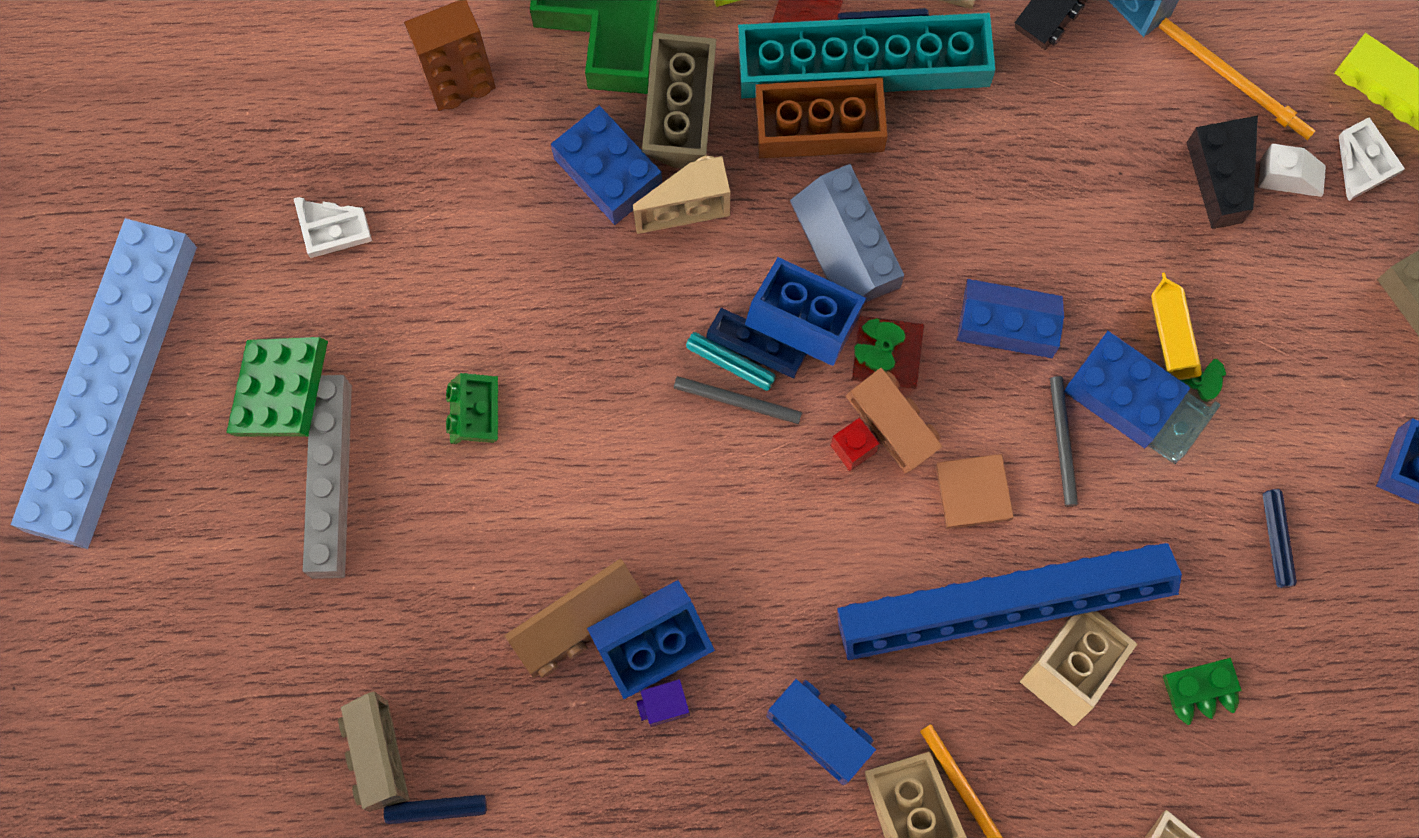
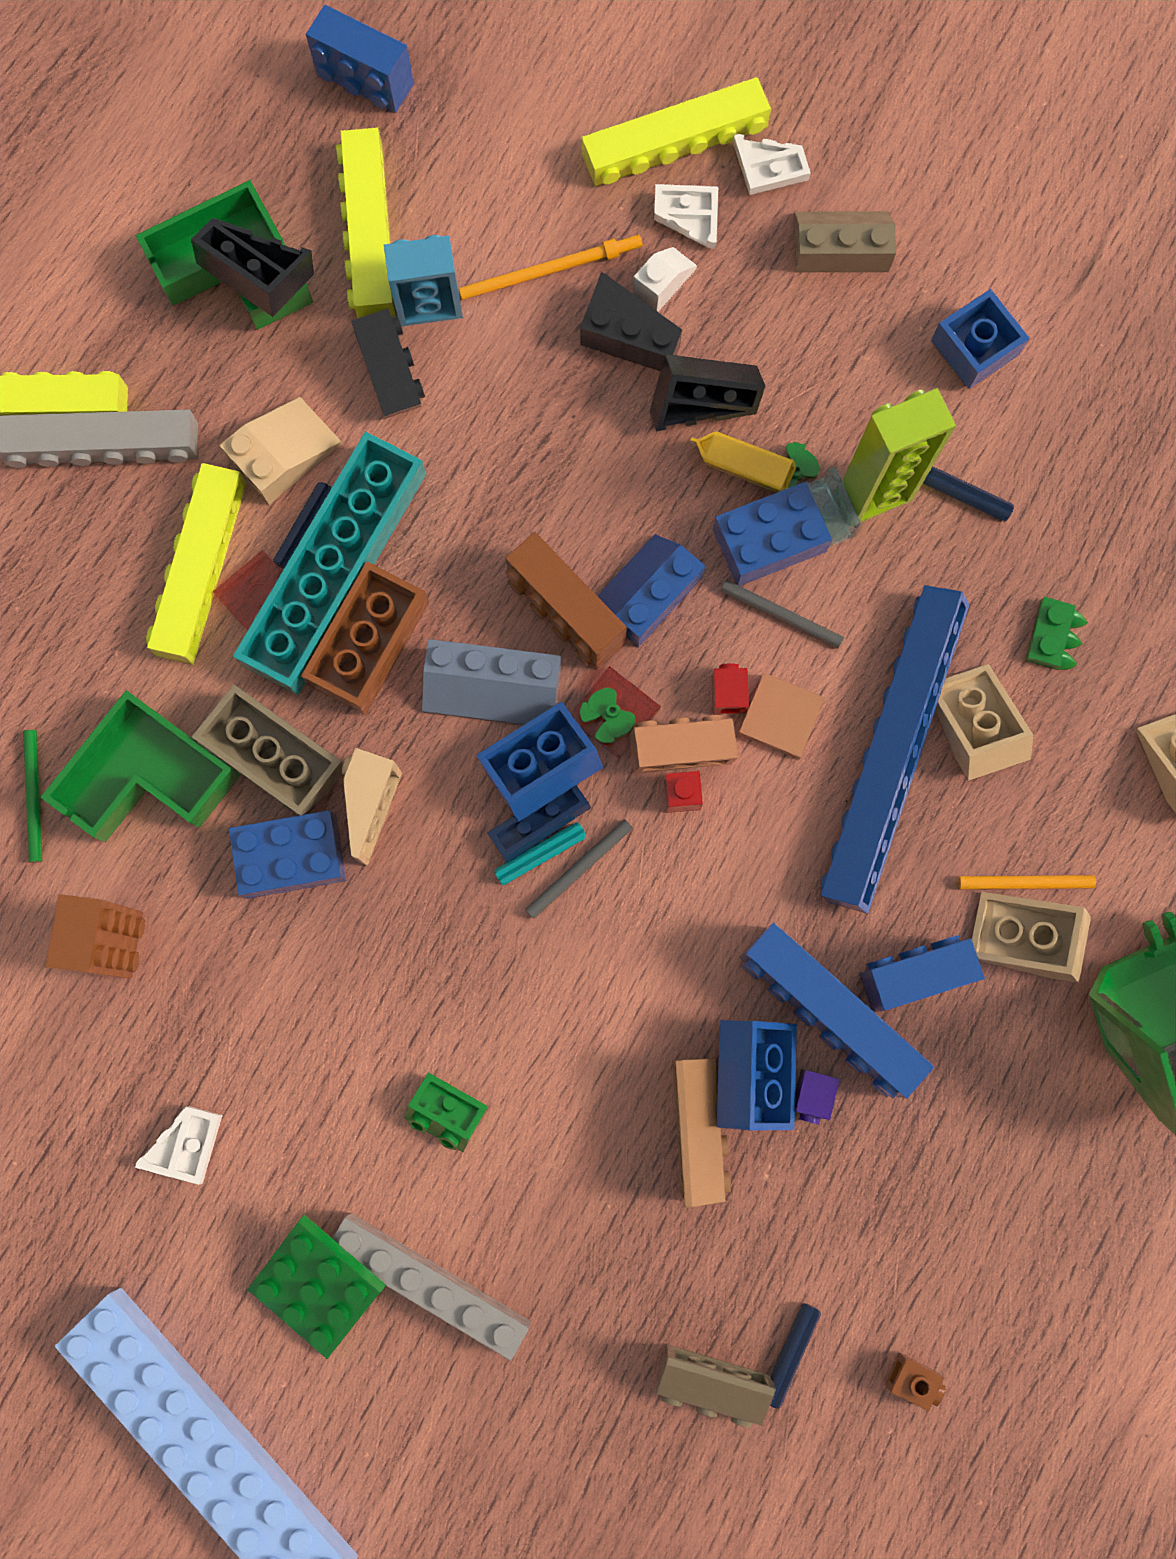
camera: 60 degrees left, 5 degrees up
(744, 675) = (836, 1012): none -> blue brick
(951, 252) = (565, 601): none -> dark orange brick
(967, 433) = (730, 689): none -> red brick
(1214, 260) = (704, 389): none -> black wedge
(1255, 434) = (897, 453): none -> lime brick

